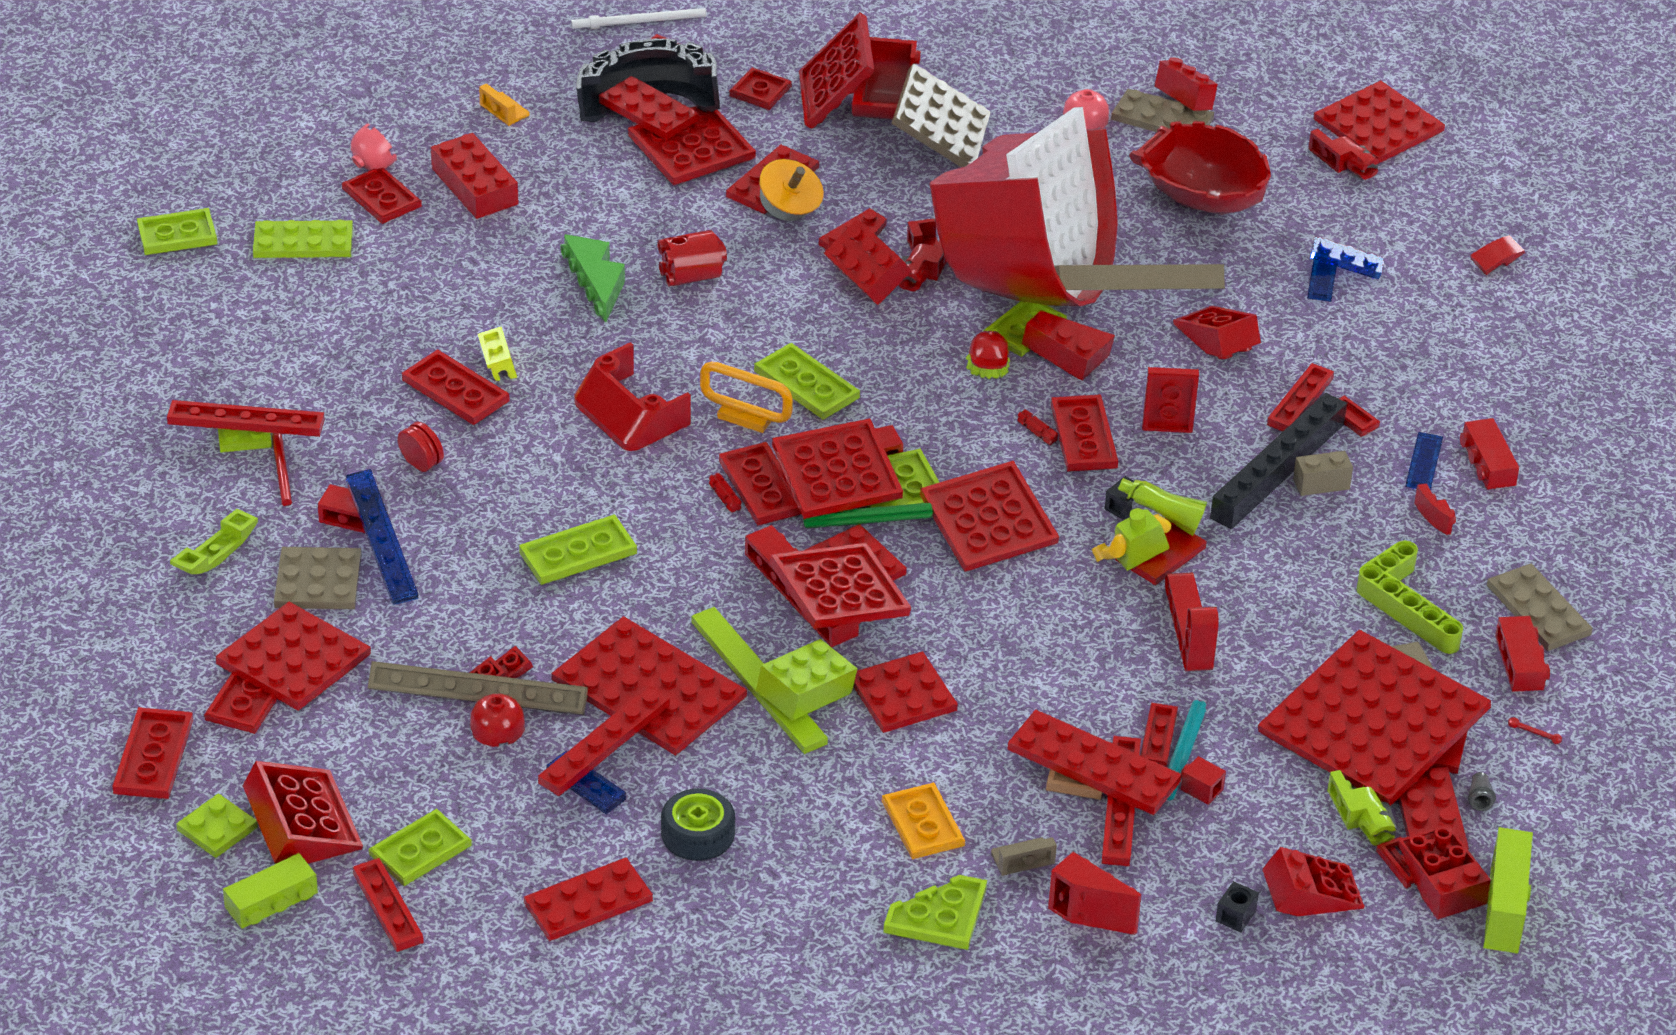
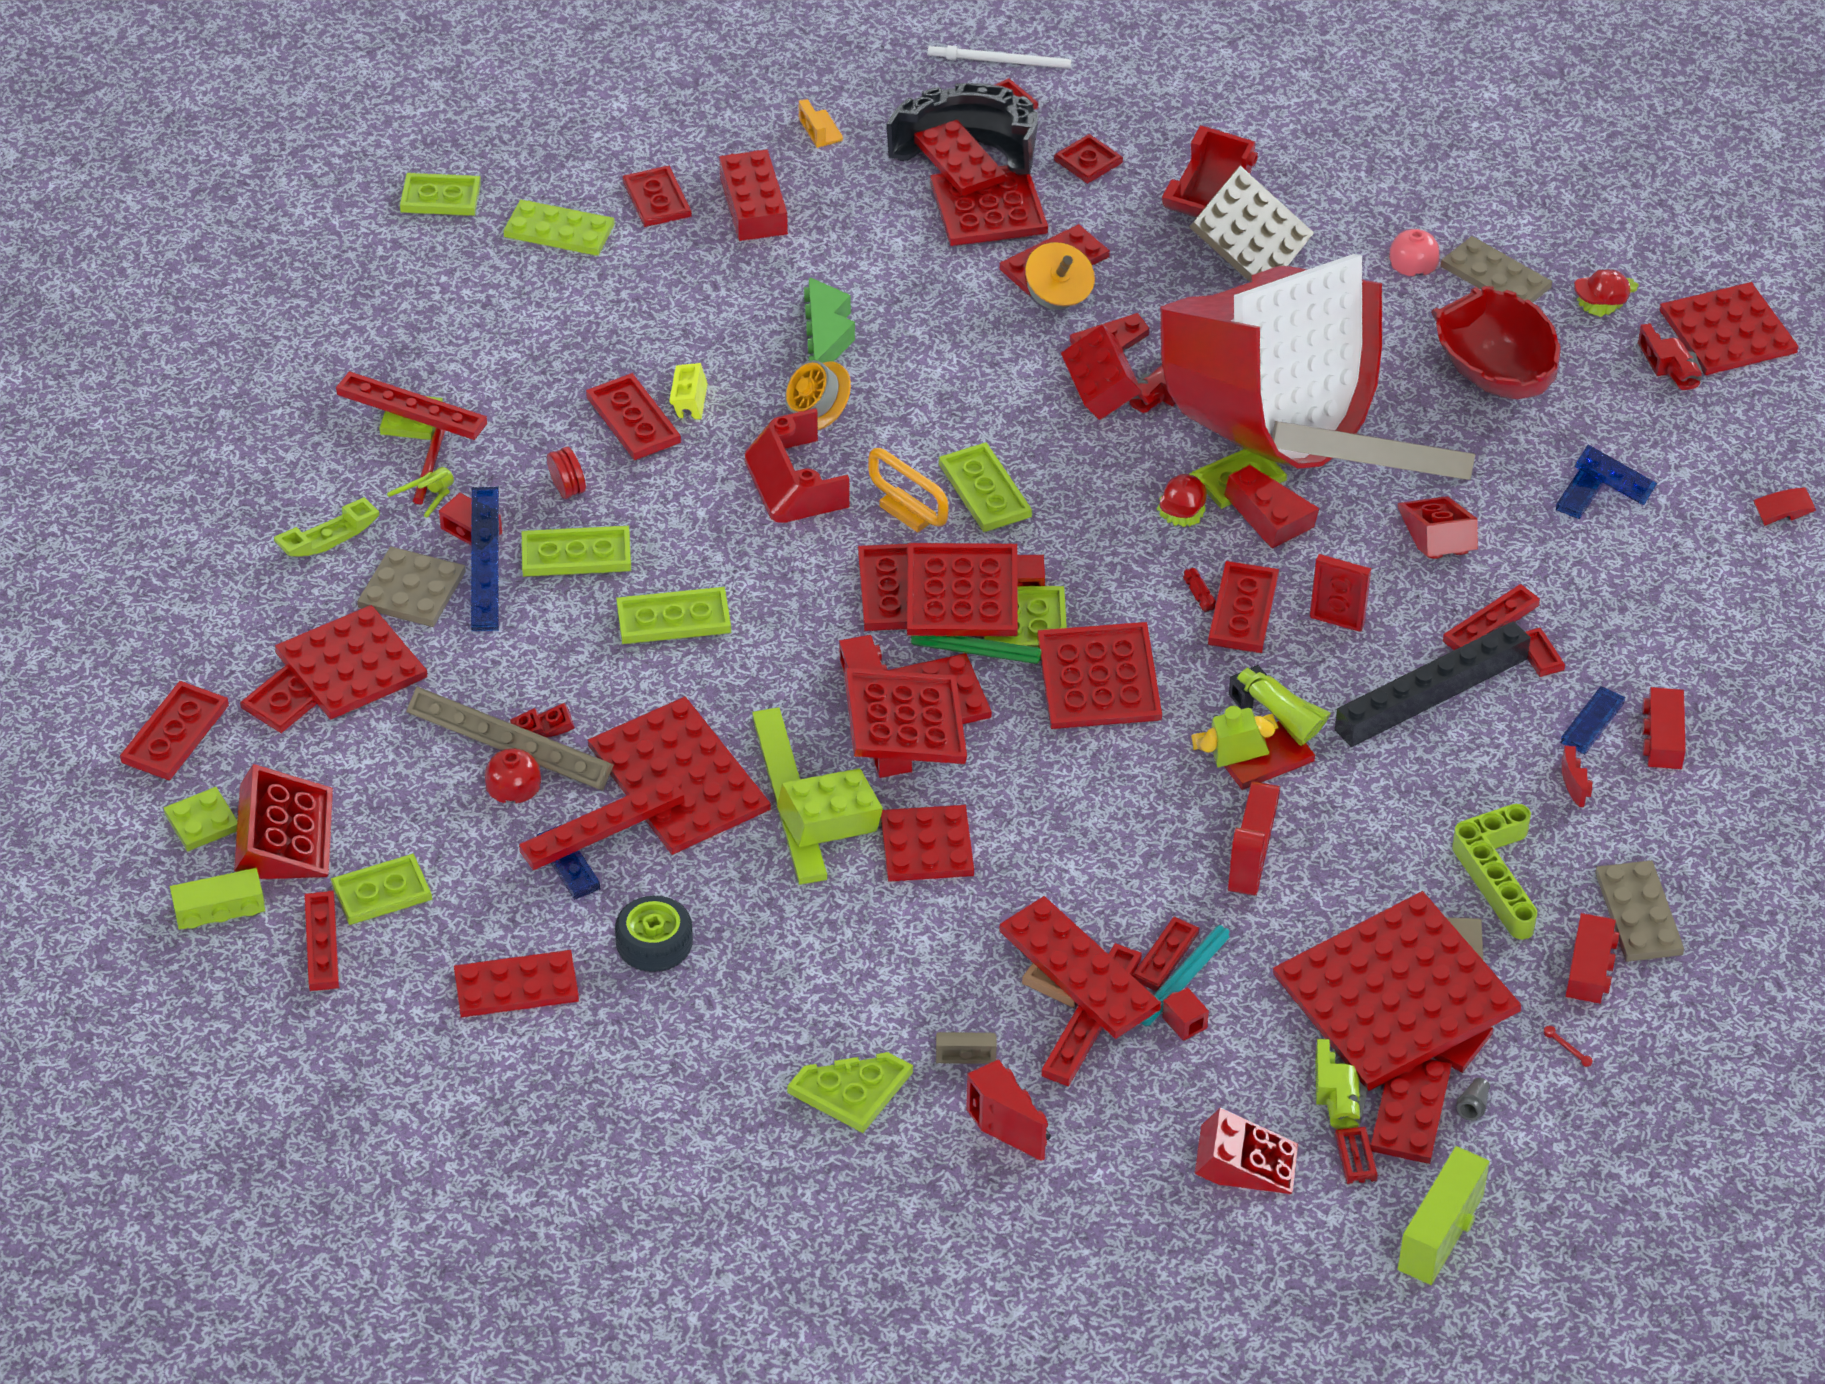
camera: 20 degrees right, 5 degrees up
(299, 481) = (436, 482): none -> lime plant
(371, 149) = (662, 147): coral cylinder -> none
(459, 513) = (576, 551): none -> lime plate
(622, 323) = (819, 387): none -> light orange piece
(691, 257) = (925, 329): red cylinder -> none
(725, 492) = (848, 588): red axle -> none
(836, 71) = (1163, 157): red plate -> none
(923, 820) = (883, 985): light orange tile -> none
(1186, 84) = (1530, 245): red brick -> none
(1237, 906) = (1155, 1158): black brick -> none
(1263, 111) = (1604, 291): none -> red hair
(1323, 473) = (1472, 708): dark tan brick -> none
(1445, 871) = (1388, 1175): red slope -> none

